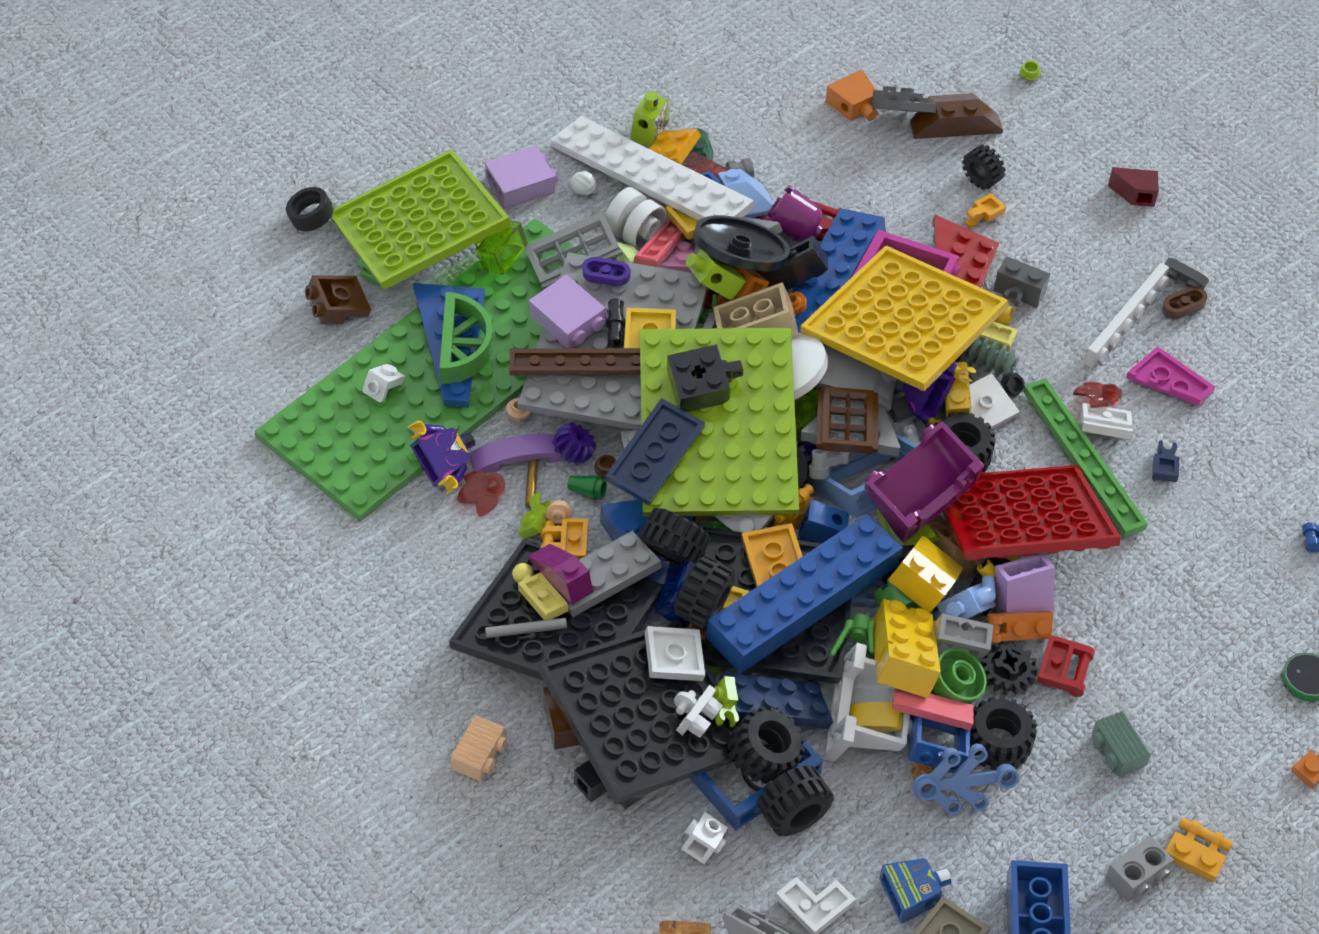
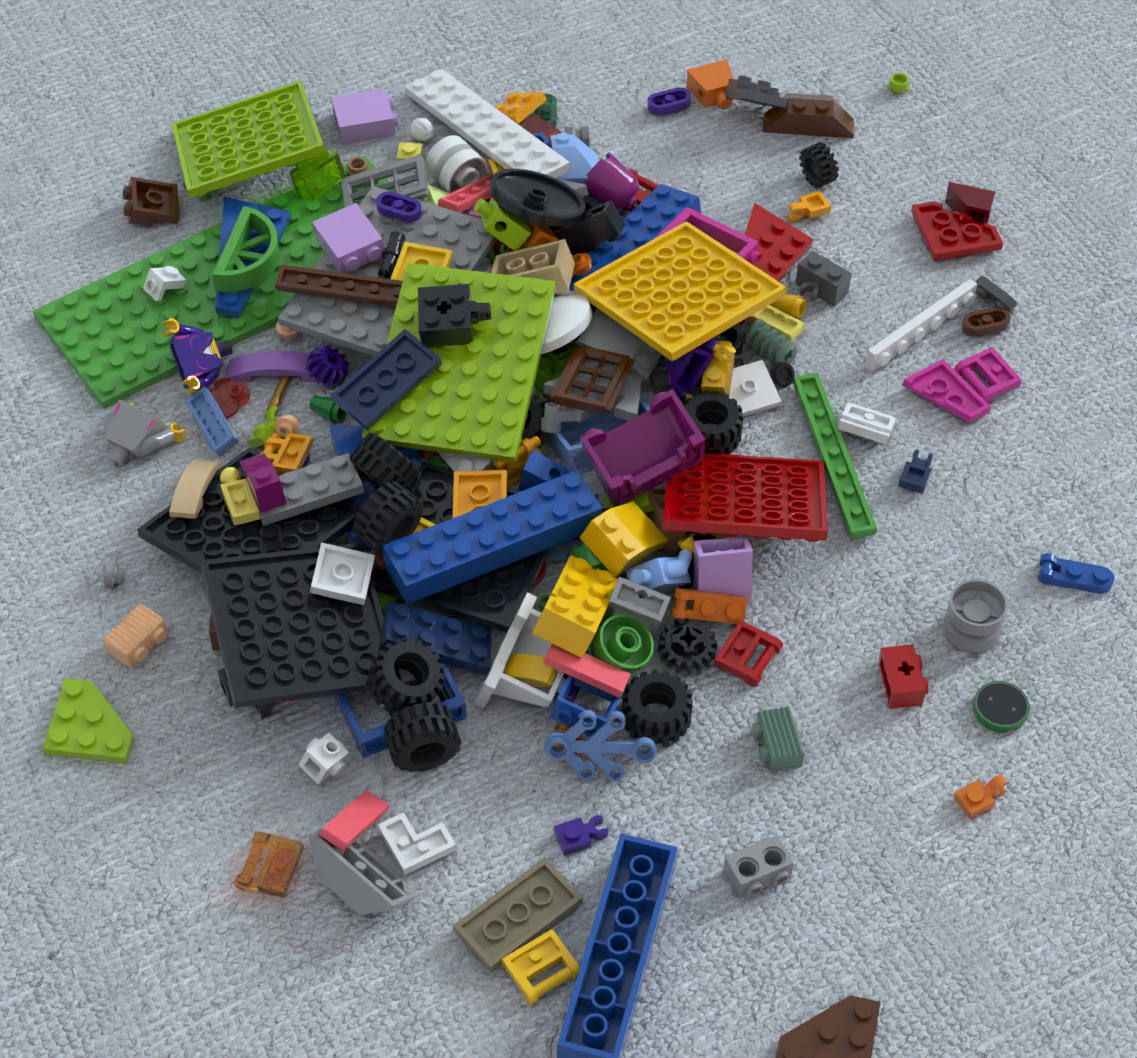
camera: 15 degrees right, 0 degrees up
(314, 219) = (153, 118): black tyre -> none
(406, 541) = (136, 432): none -> light grey torso
(432, 690) = (112, 574): none -> light grey plate
(459, 846) = (87, 726): none -> lime plate
(477, 518) = (212, 421): none -> medium blue plate
(489, 590) = (191, 487): none -> tan slope
(523, 628) = (213, 528): light grey bar -> none
(536, 231) = (357, 165): none -> medium nougat plate
(577, 209) = (408, 150): none -> light yellow plate
(650, 113) = (503, 78): lime torso -> none
(693, 721) = (337, 639): white hips -> none
(727, 696) = (379, 623): lime plate -> none
(756, 893) = (354, 820): none -> coral tile
(816, 119) = (669, 101): none -> dark purple plate
(860, 629) = (542, 582): bright green plant -> none
(913, 887) = (519, 843): blue torso -> none
(963, 868) = (577, 836): none -> dark purple plate
(1099, 394) = (869, 396): clear red plate -> none
(1126, 217) = (953, 233): none -> red plate
(1195, 856) = (822, 864): light orange plate -> none
(1206, 350) = (993, 369): none -> dark pink plate
(1213, 663) = (902, 676): none -> red brick
(1265, 594) = (975, 615): none -> light grey wheel

